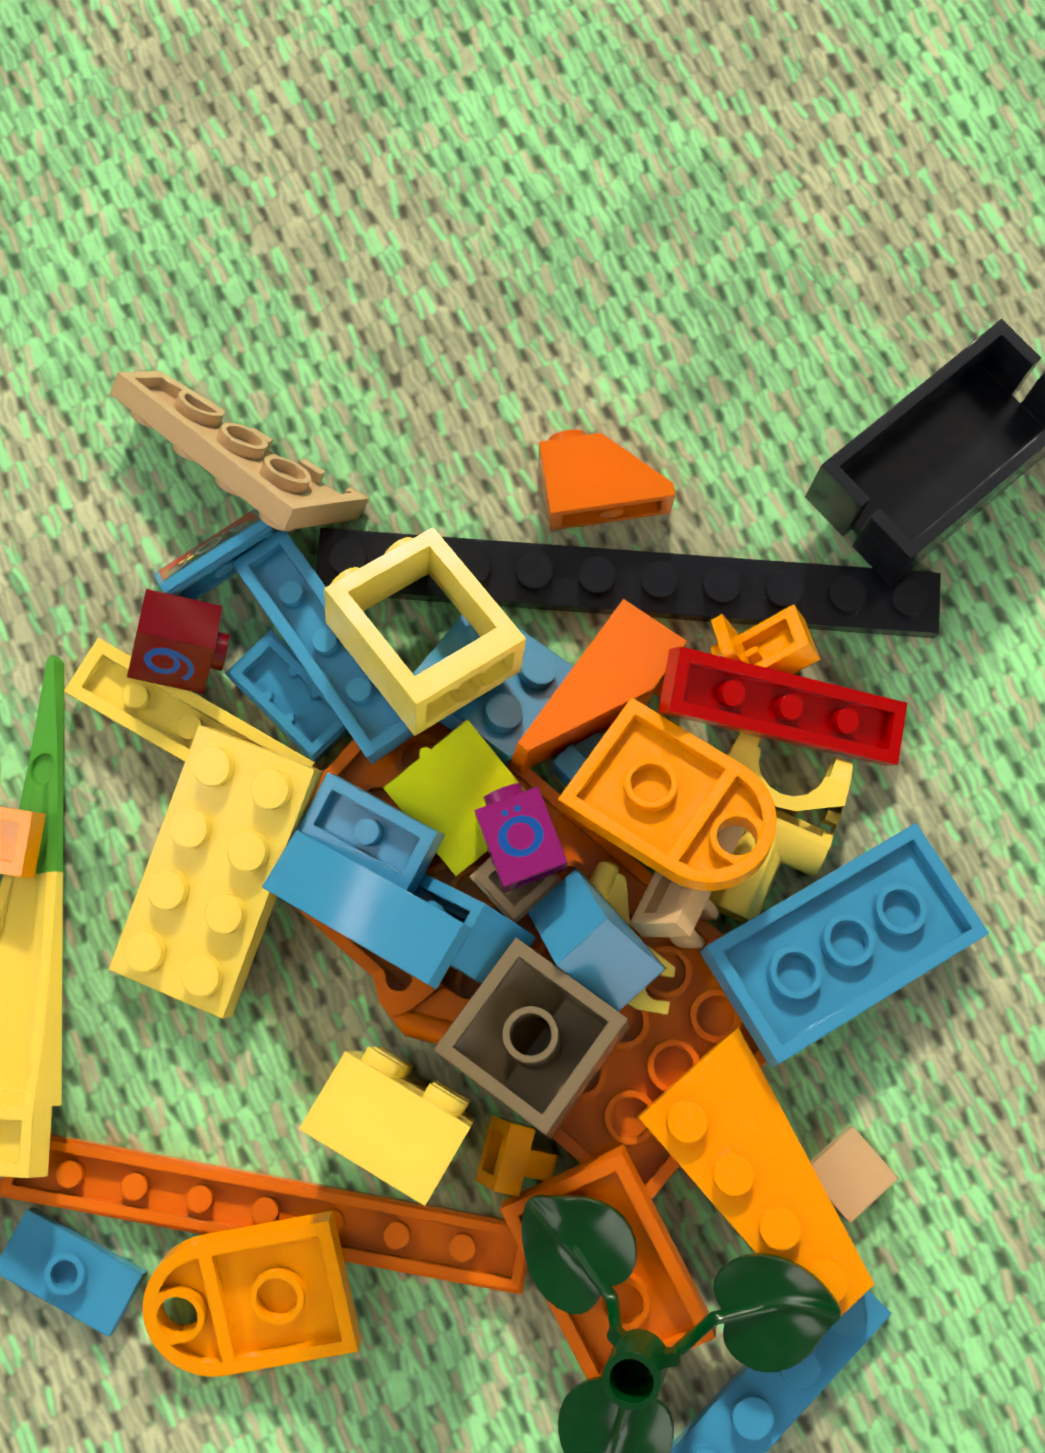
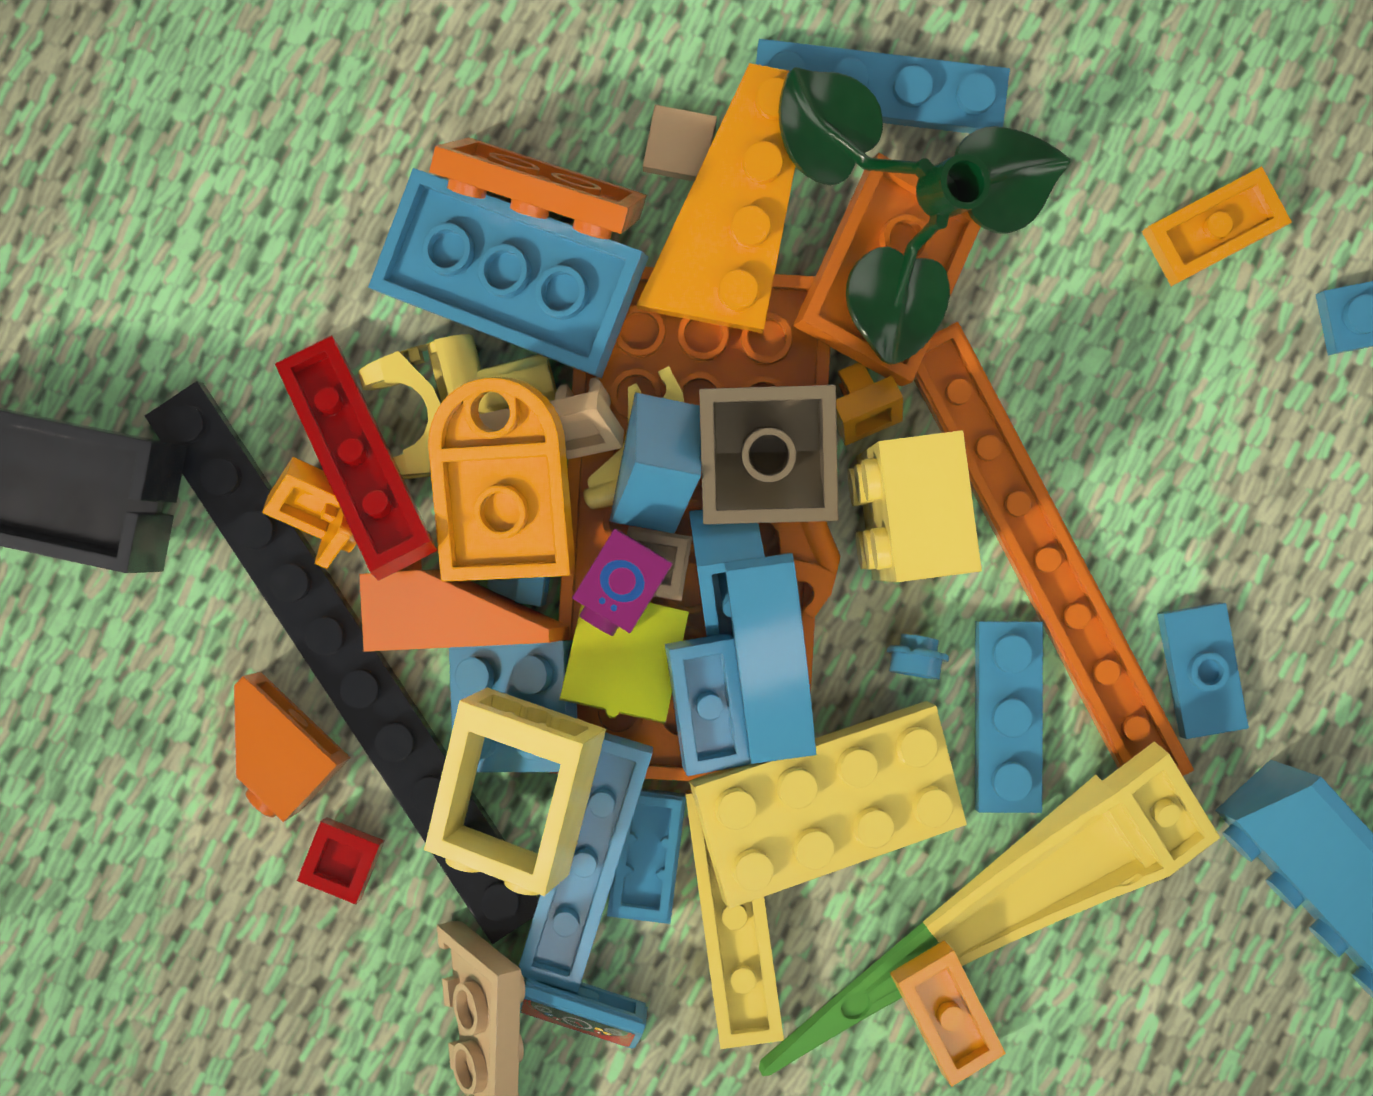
camera: 130 degrees left, 10 degrees up
(165, 1075) = (1008, 716): none -> dark azure plate
(177, 642) = (675, 981): dark red brick -> none
(259, 1298) = (1114, 515): light orange plate -> none
(273, 1036) = (917, 657): none -> dark azure plate
(476, 463) = (340, 860): none -> red plate
(897, 1022) = (537, 186): none -> orange plate

